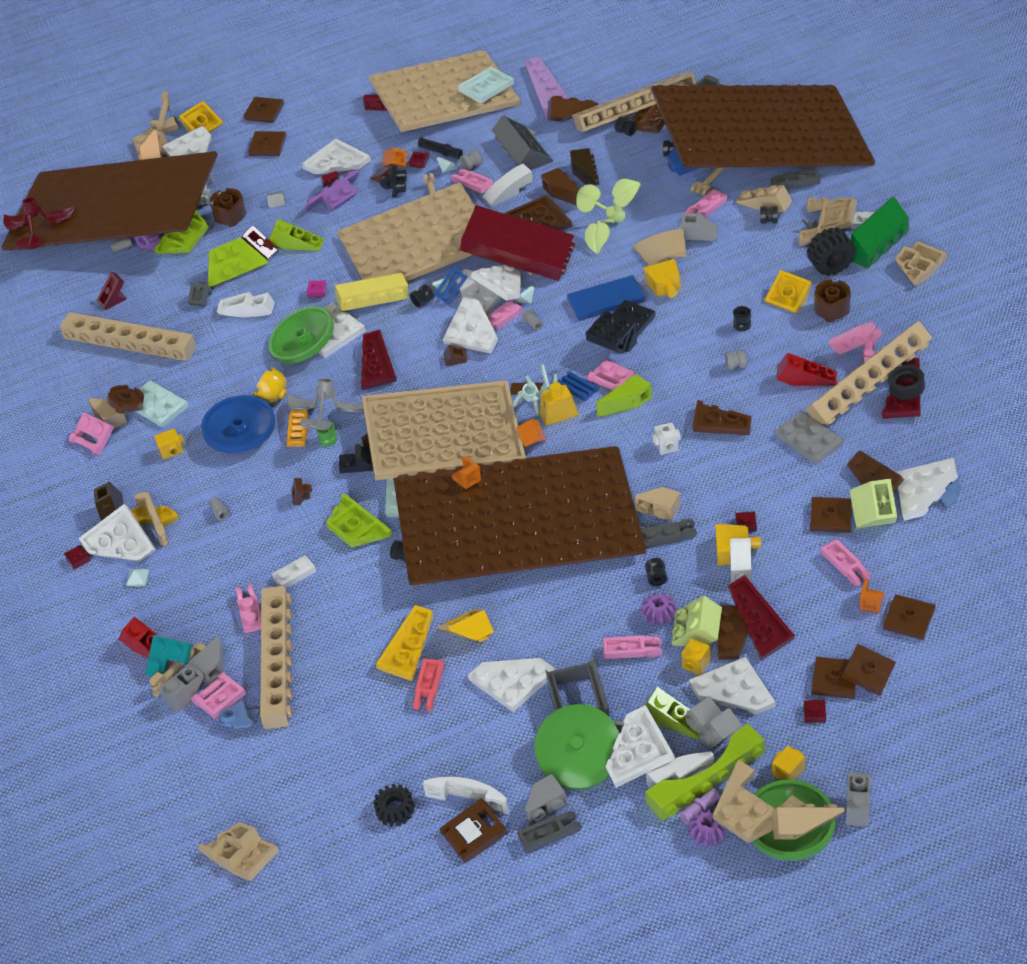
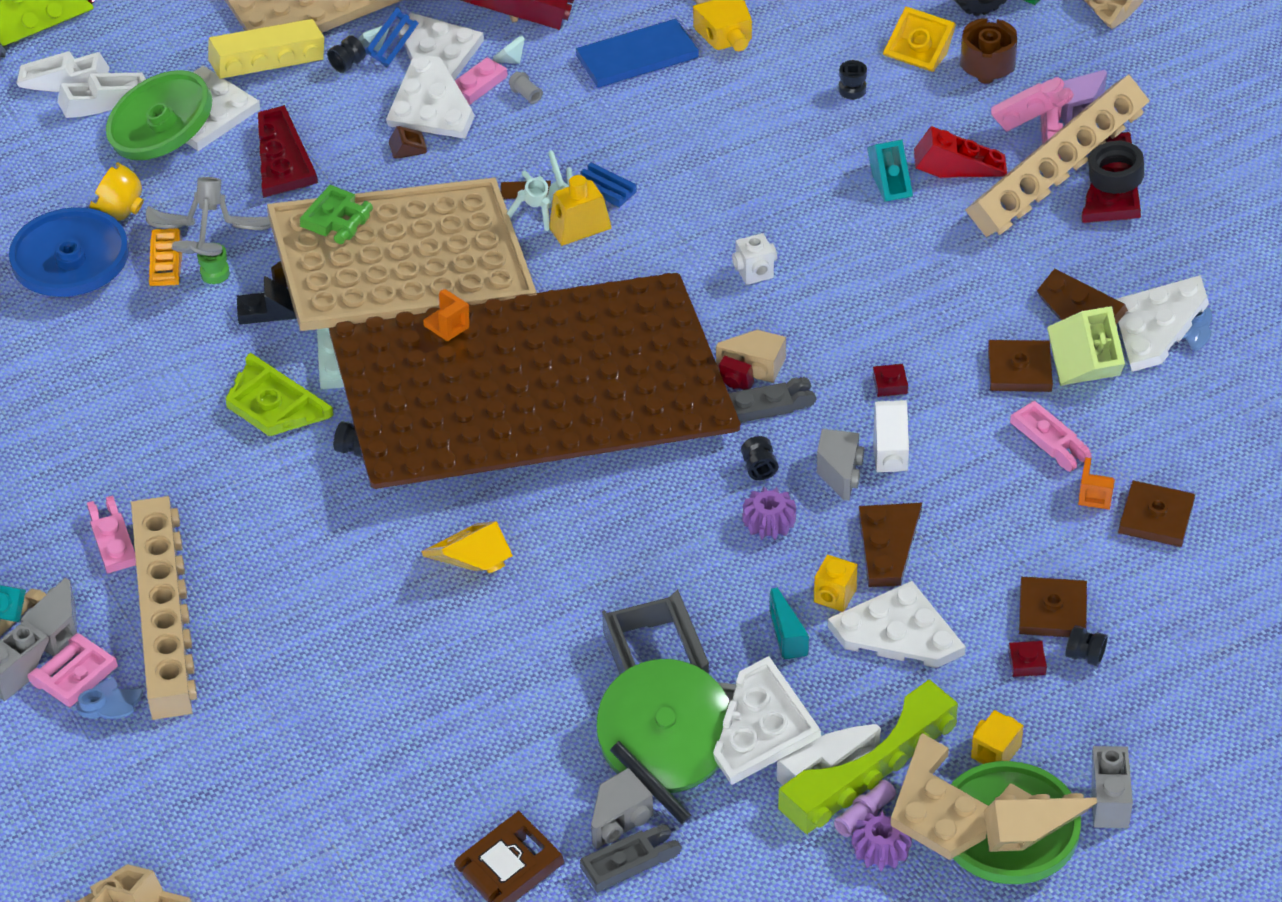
camera: 10 degrees left, 0 degrees up
(220, 511) = (51, 387): light grey pin -> none
(265, 320) = (97, 95): none -> white slope
(294, 572) = (180, 476): white plate -> none
(300, 491) = (178, 352): reddish brown tile -> none
(316, 288) = (176, 46): dark pink plate -> none
(394, 815) = (380, 843): black tyre -> none
(398, 403) = (328, 214): none -> bright green plate
(406, 647) = (374, 582): yellow wing -> none
(428, 683) = (414, 637): coral hinge -> none
(442, 786) = (450, 796): white slope -> none
(501, 280) = (471, 27): white plate -> none
(511, 680) = (545, 630): white plate -> none
(531, 432) = (540, 254): orange panel -> none
(564, 782) = (651, 783): none -> black bar
(609, 371) = (658, 169): bright pink plate -> none
(621, 328) = (667, 95): black piece -> none
(627, 396) = (686, 197): lime slope -> none
(631, 647) = (732, 572): bright pink hinge -> none
(647, 515) = (736, 373): none -> dark red plate
(661, 679) = (789, 631): none -> teal slope
(669, 713) = (812, 672): lime slope -> none
(697, 621) = (833, 528): yellowish green slope -> none
(706, 574) = (837, 460): none -> light grey slope
(711, 723) = (873, 681): light grey brick -> none
(714, 420) = (832, 232): reddish brown wing -> none
(724, 534) = (860, 407): yellow torso -> none
(733, 360) = (848, 140): light grey wheel -> none
(760, 381) = (890, 170): none -> teal slope
(761, 621) = (931, 525): dark red wing -> none
(809, 437) = (974, 253): light grey plate -> none
(853, 704) = (1086, 645): none -> black wheel
(868, 669) = (1104, 593): reddish brown plate -> none
(890, 330) = (1085, 91): none -> lavender slope

